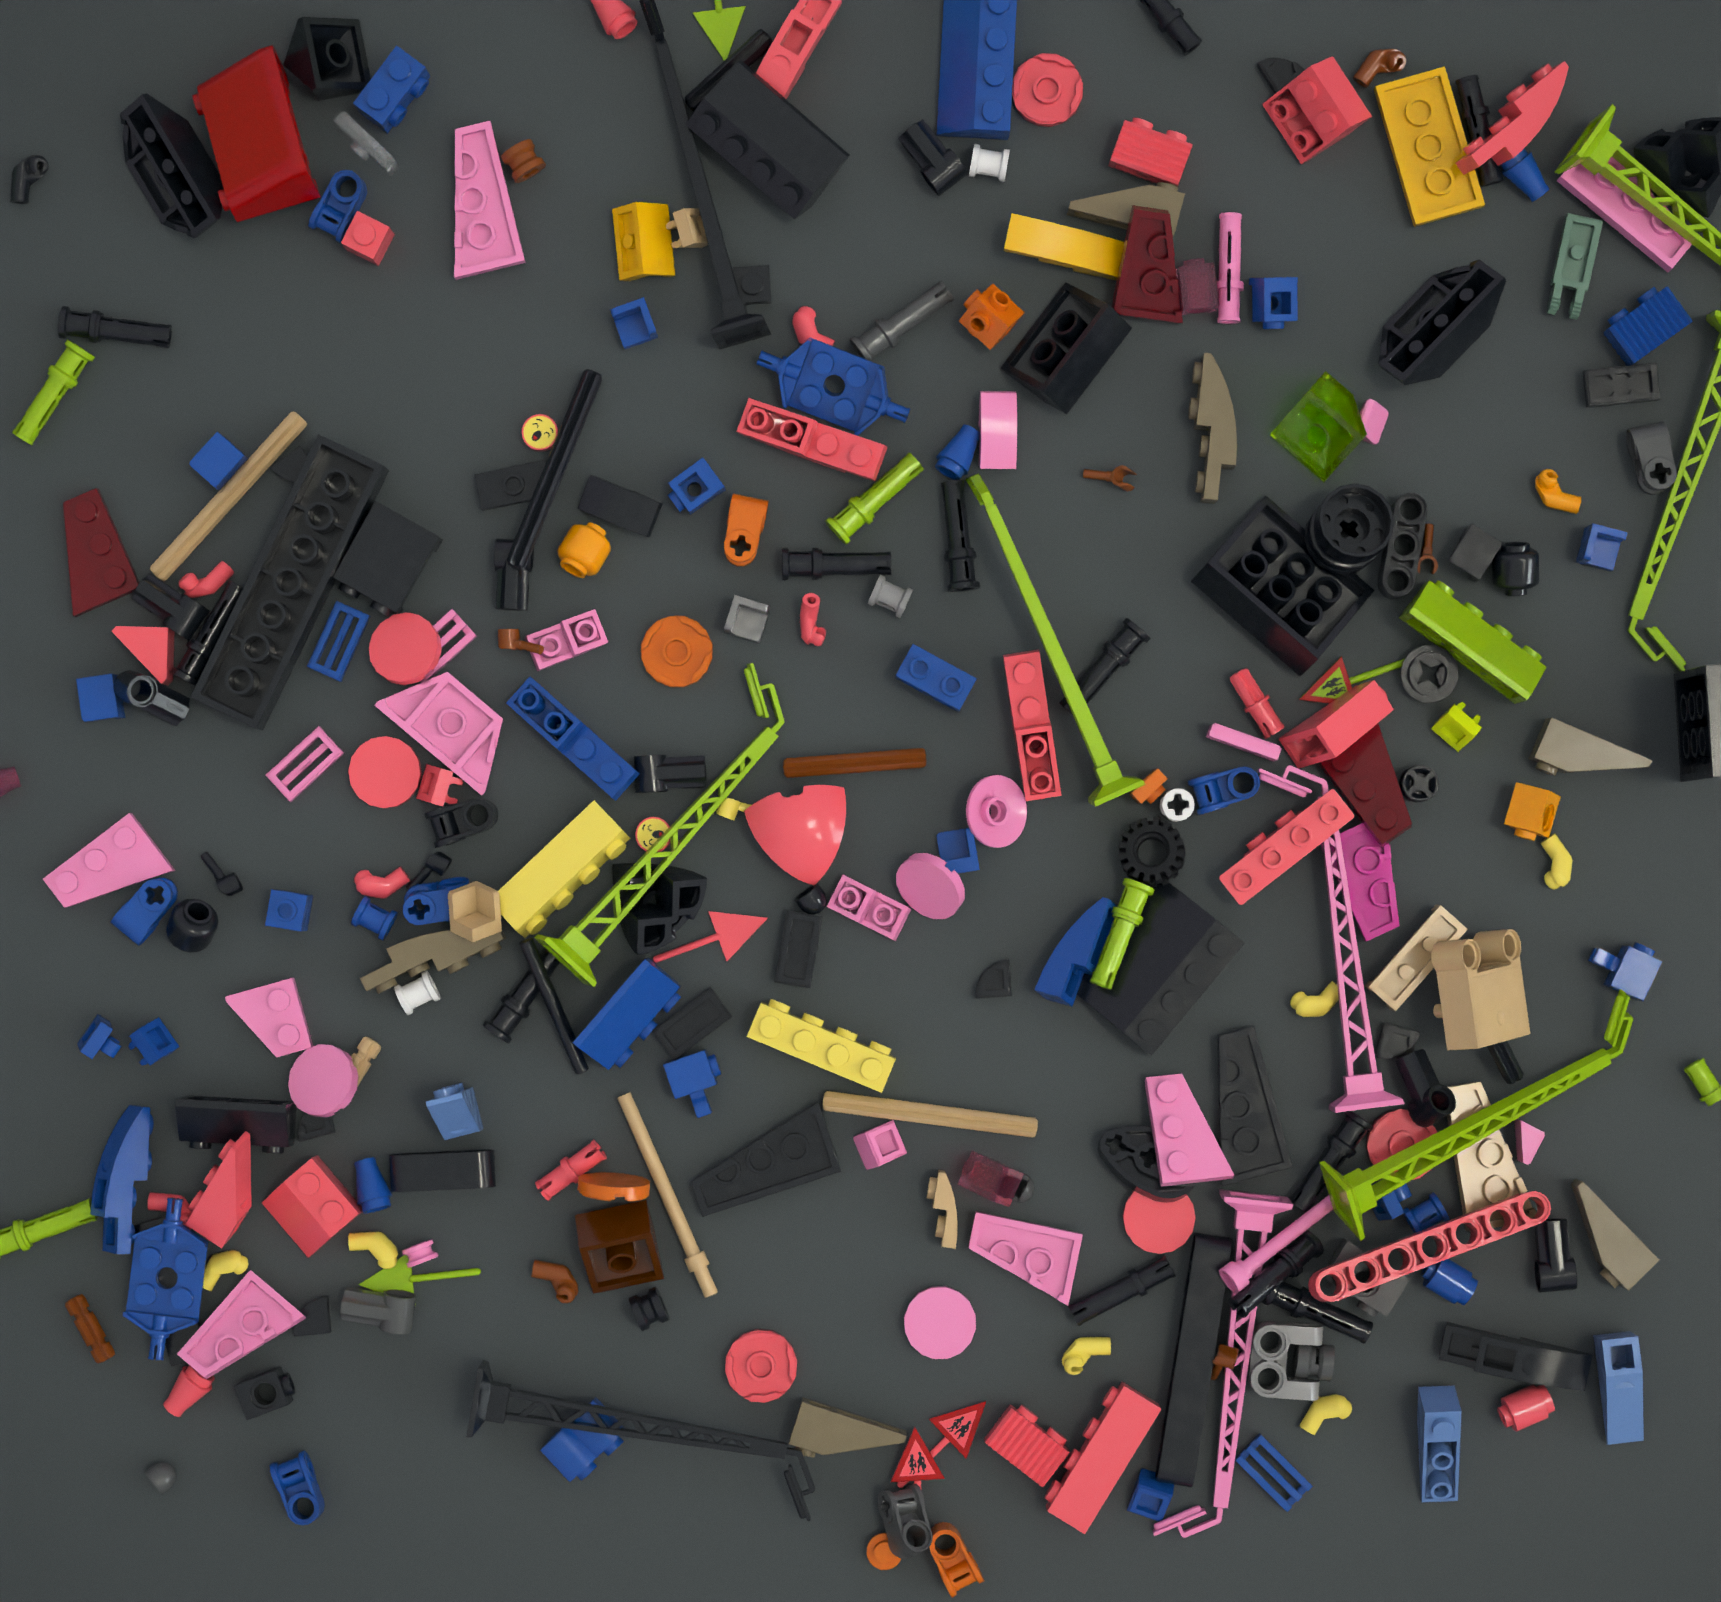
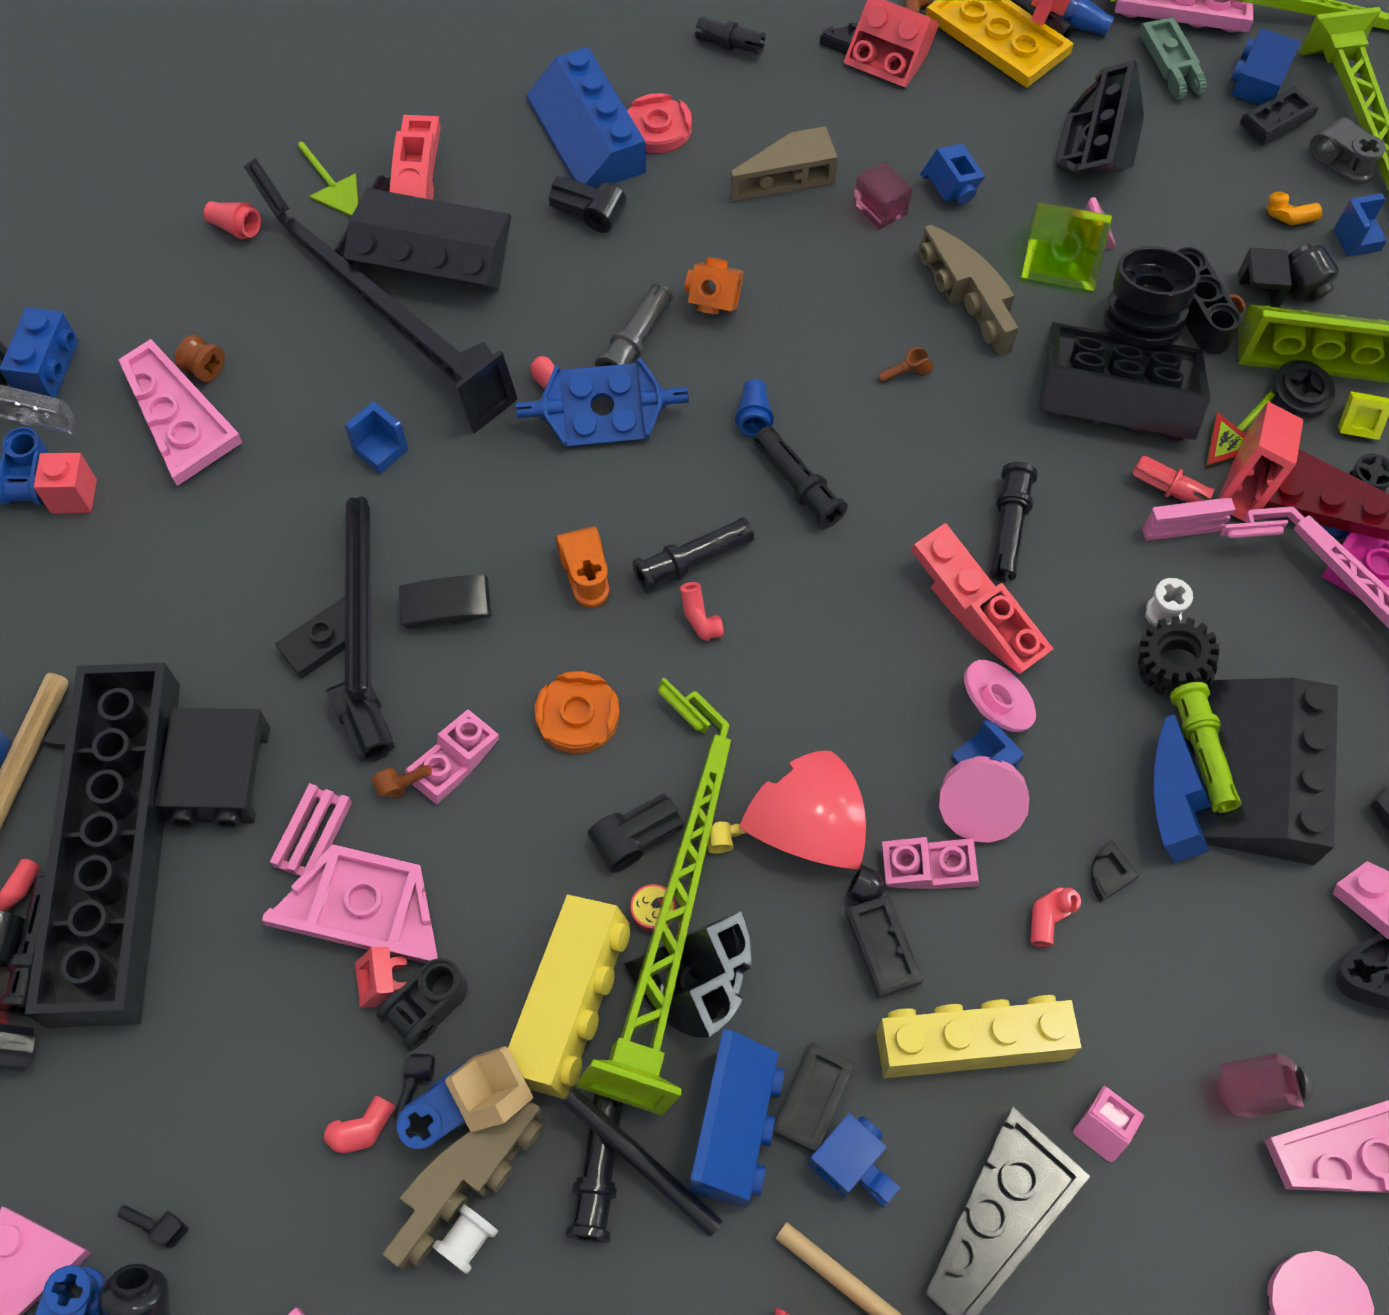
camera: 30 degrees left, 25 degrees down
(289, 910) = (255, 1219): blue brick -> none
(327, 744) = (223, 1044): bright pink tile -> none
(351, 647) = (211, 885): blue tile -> none
(374, 918) = (369, 1173): blue bush -> none
(385, 772) = (309, 997): coral tile -> none
(405, 648) = (272, 846): coral tile -> none
(539, 432) = (327, 578): light yellow tile -> none
(572, 738) = (510, 849): blue slope -> none
(584, 550) = (427, 657): light orange head -> none
(643, 241) = (349, 373): yellow panel -> none
(690, 229) = (393, 343): tan tile -> none
(700, 474) = (513, 537): blue brick -> none
(730, 930) = (797, 970): coral piece -> none
(747, 618) = (633, 639): flat silver panel -> none
(811, 440) = (599, 461): coral slope -> none
(854, 762) = (824, 727): dark orange axle -> none
(862, 508) = (692, 492): lime pin -> none
(890, 596) = (766, 555): light grey bush -> none
(930, 1114) = (1139, 1054): tan axle -> none
(932, 985) = (1050, 910): none -> coral arm
(935, 678) = (858, 602): blue brick -> none
(943, 1198) = (1222, 1139): tan slope -> none
(989, 162) = (641, 184): white bush -> none
(998, 429) = (780, 371): bright pink slope -> none
(1064, 246) = (755, 208): yellow slope -> none
(1066, 347) = (799, 284): black slope -> none
(1106, 769) = (1084, 597): lime piece -> none
(1147, 268) = (831, 194): dark red wing -> none
(1150, 153) = (771, 119): coral brick -> none
(1152, 789) = (1131, 601): orange plate -> none
(1221, 789) = (1200, 567): blue piece -> none
(1229, 310) = (882, 151): bright pink pin -> none
(1285, 846) = (1300, 581): coral bracket -> none

